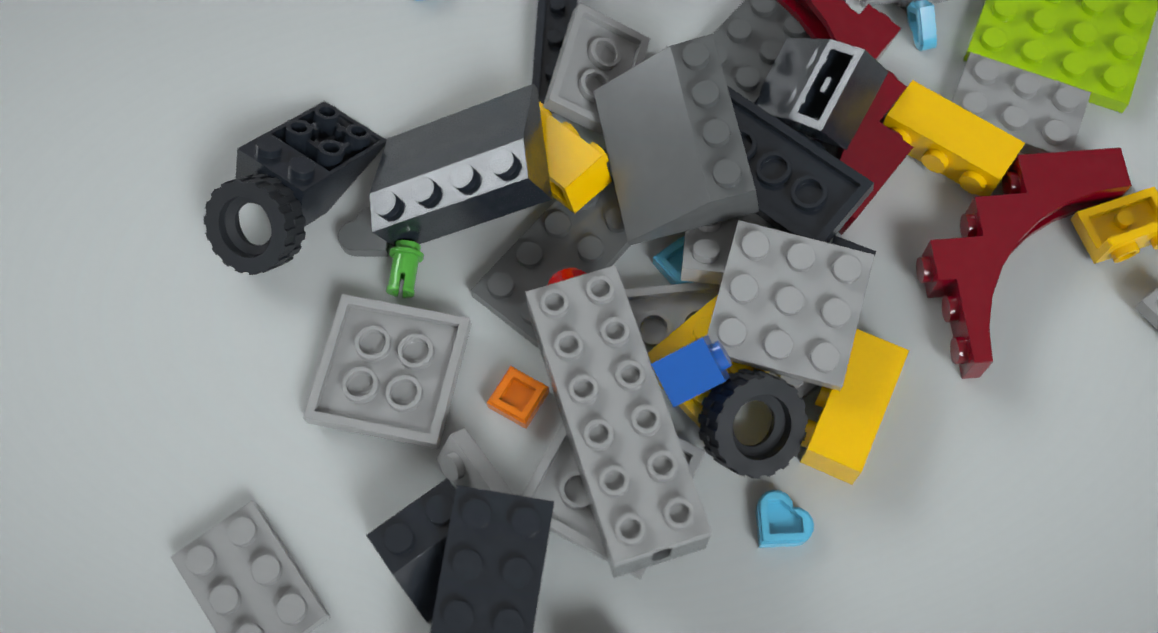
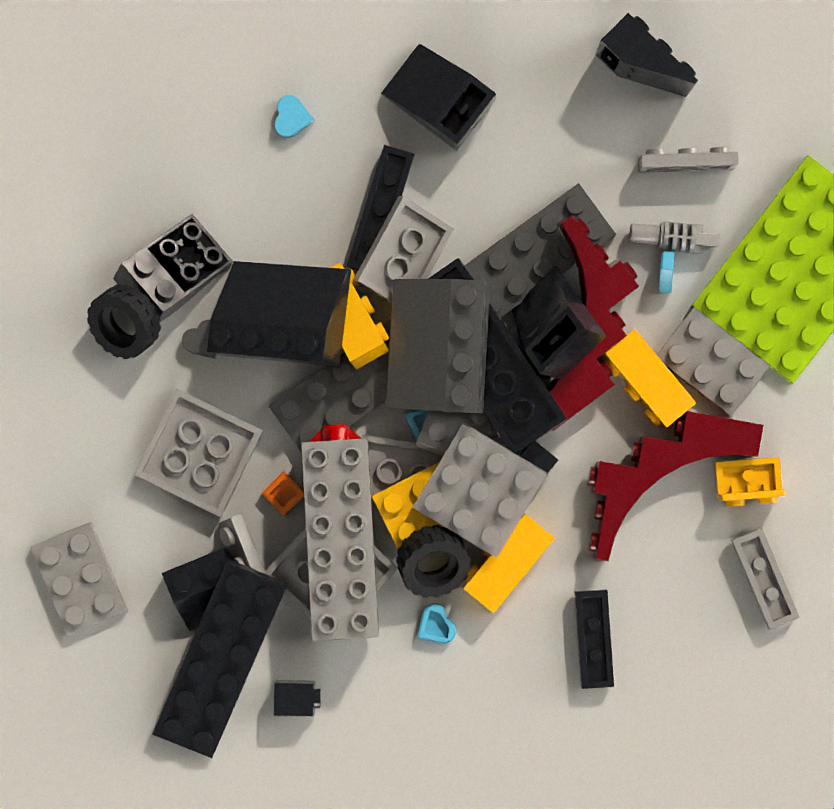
camera: 10 degrees right, 20 degrees up
(404, 267) = (225, 374): bright green pin -> none
(692, 369) = (398, 524): blue brick -> none
(1011, 481) = (594, 639): none -> black plate

